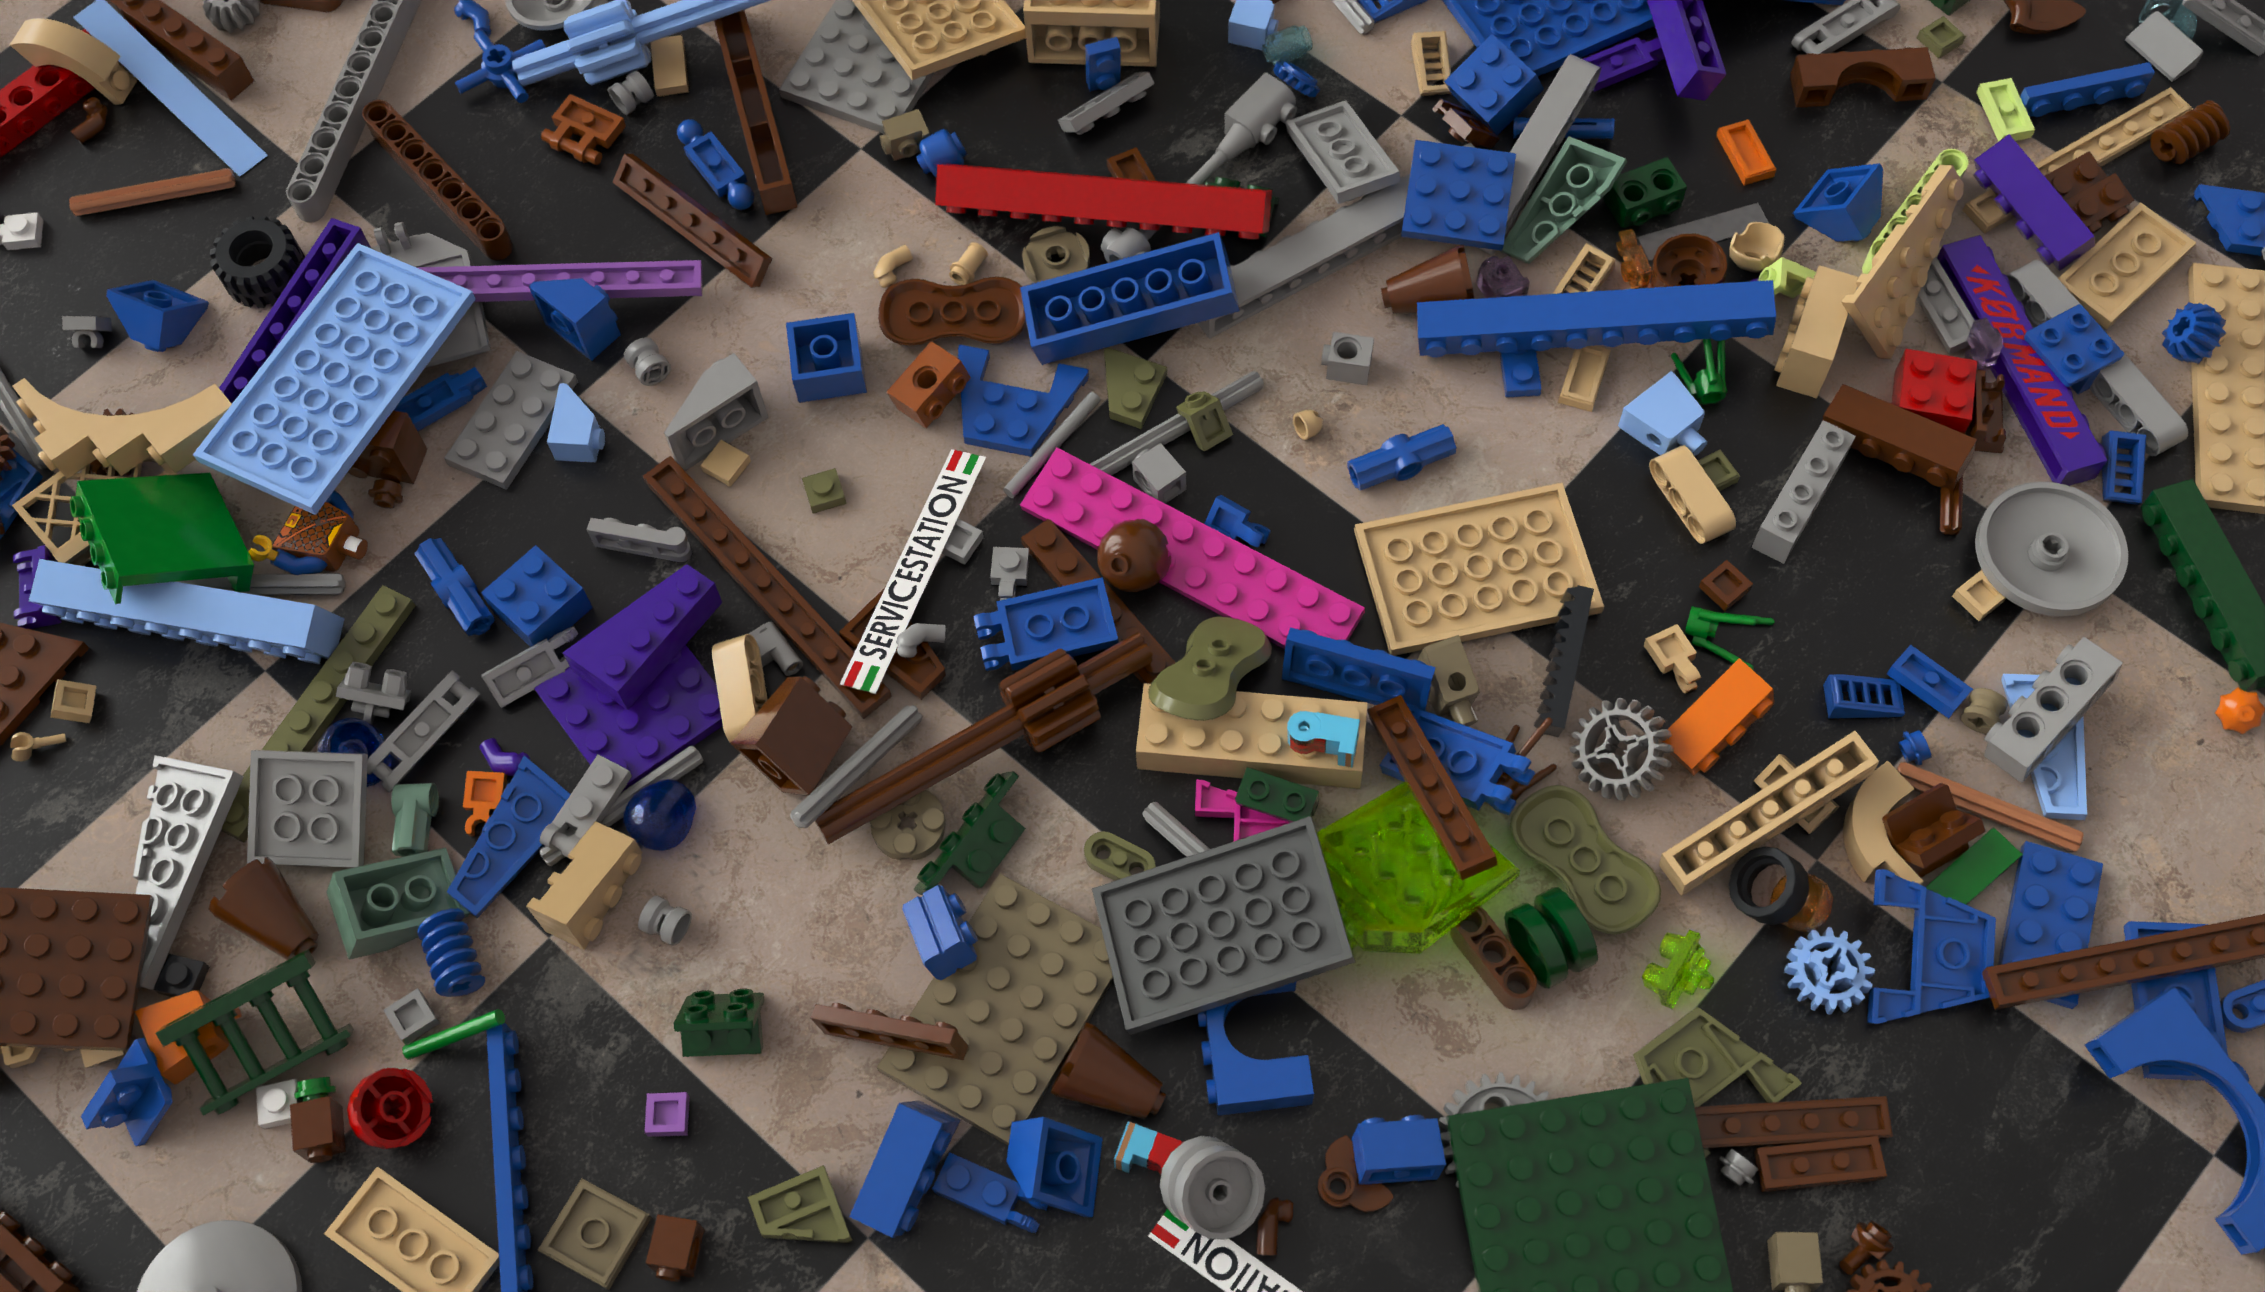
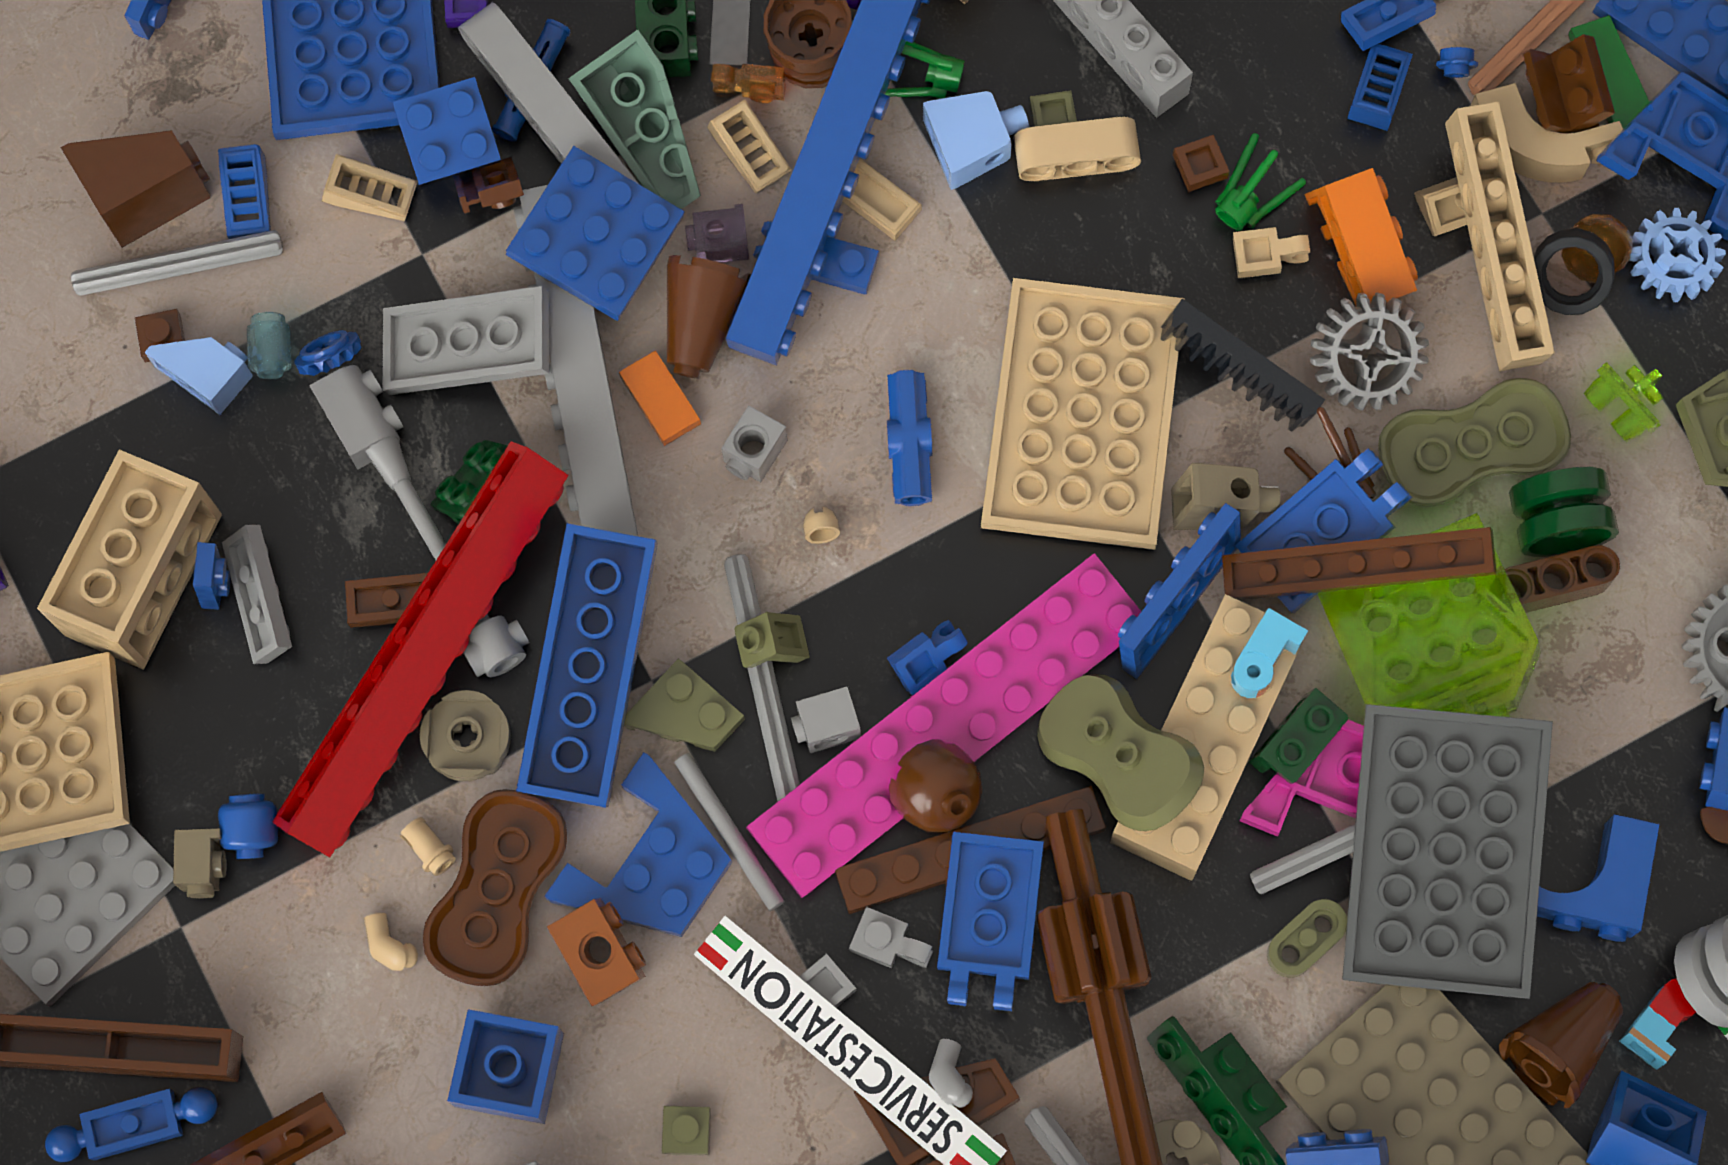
camera: 70 degrees left, 10 degrees up
(1359, 291) = (660, 398): none -> orange tile

